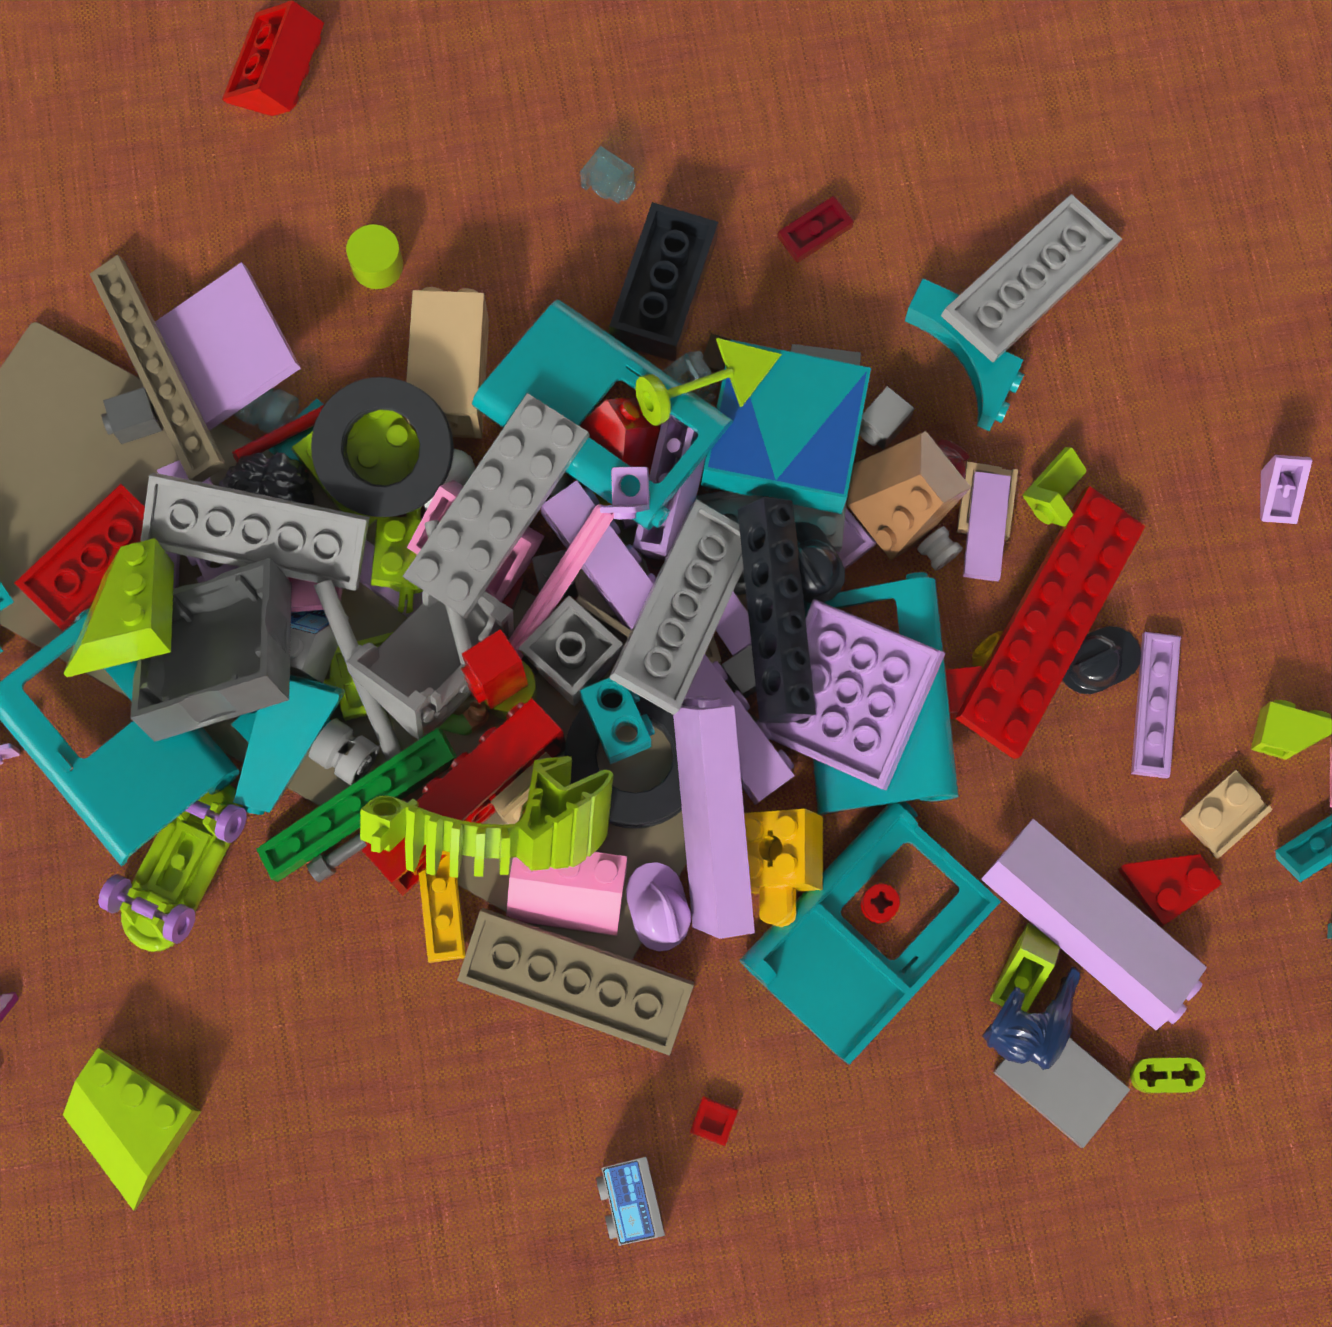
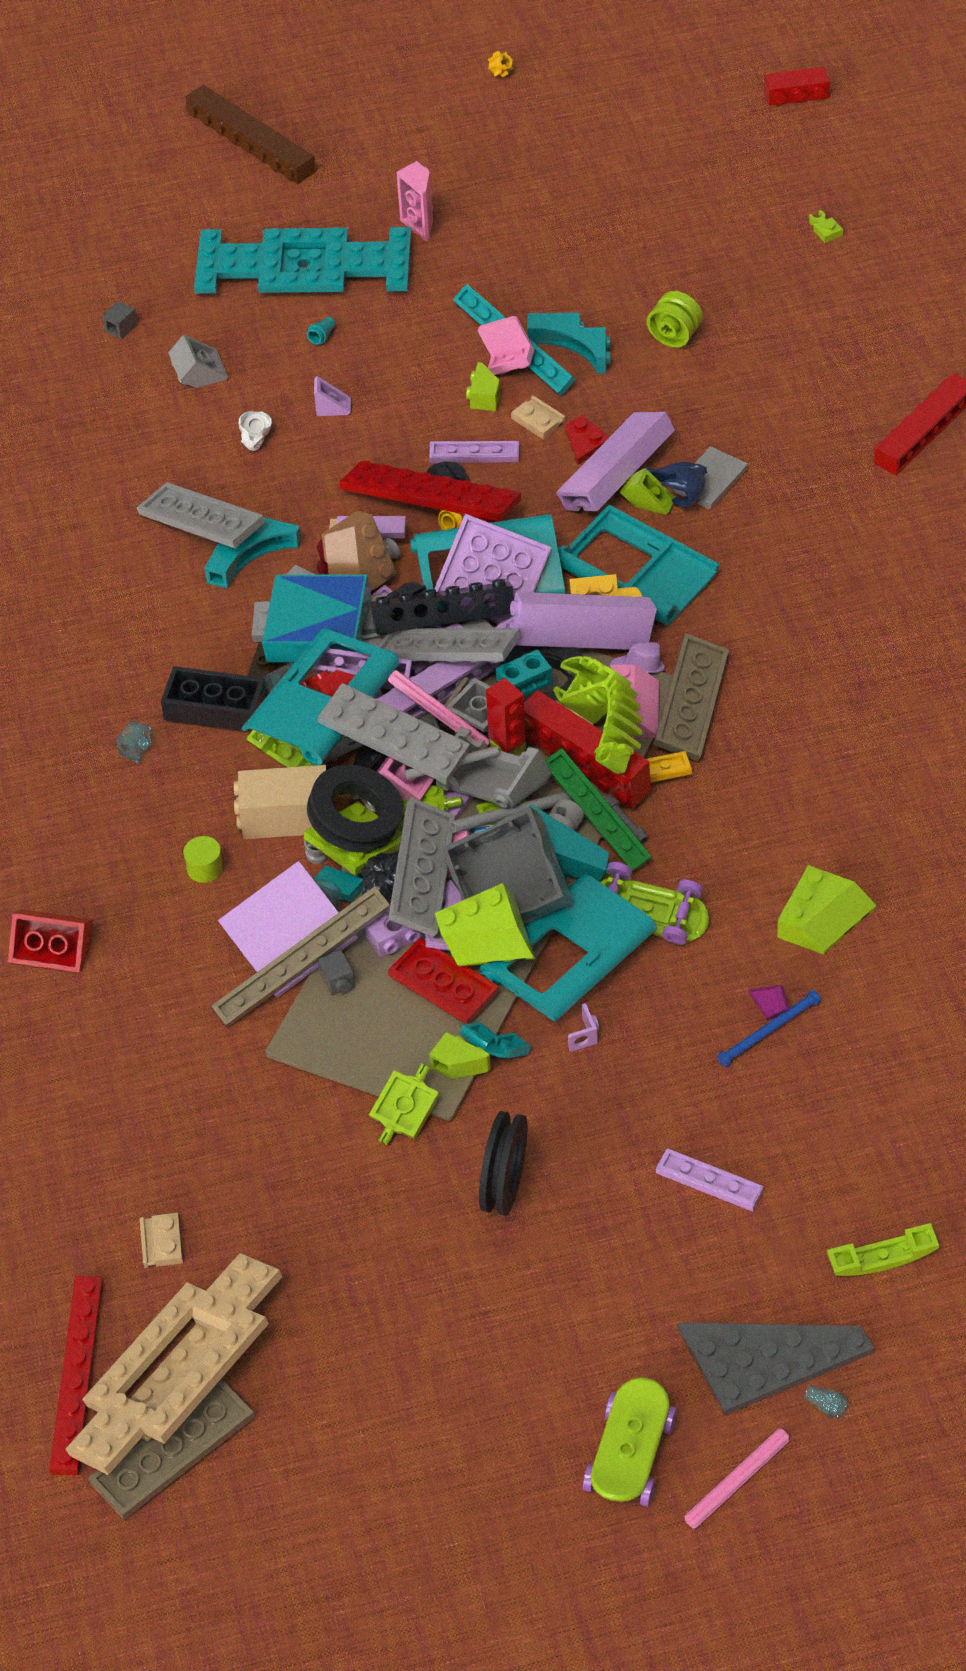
camera: 90 degrees left, 25 degrees down
(278, 435) = (331, 877): red bar -> none
(623, 505) = (389, 661): lavender bracket -> none
(631, 1201) = (819, 650): slope -> none
(714, 1121) = (764, 630): red tile -> none
(744, 366) = (314, 656): lime piece -> none
(815, 229) = (167, 632): dark red plate -> none
(872, 908) = (618, 562): red wheel -> none
(1050, 488) = (353, 501): lime bracket -> none
(1167, 1066) = (694, 433): lime beam -> none
(1227, 368) = (254, 428): none -> white hair

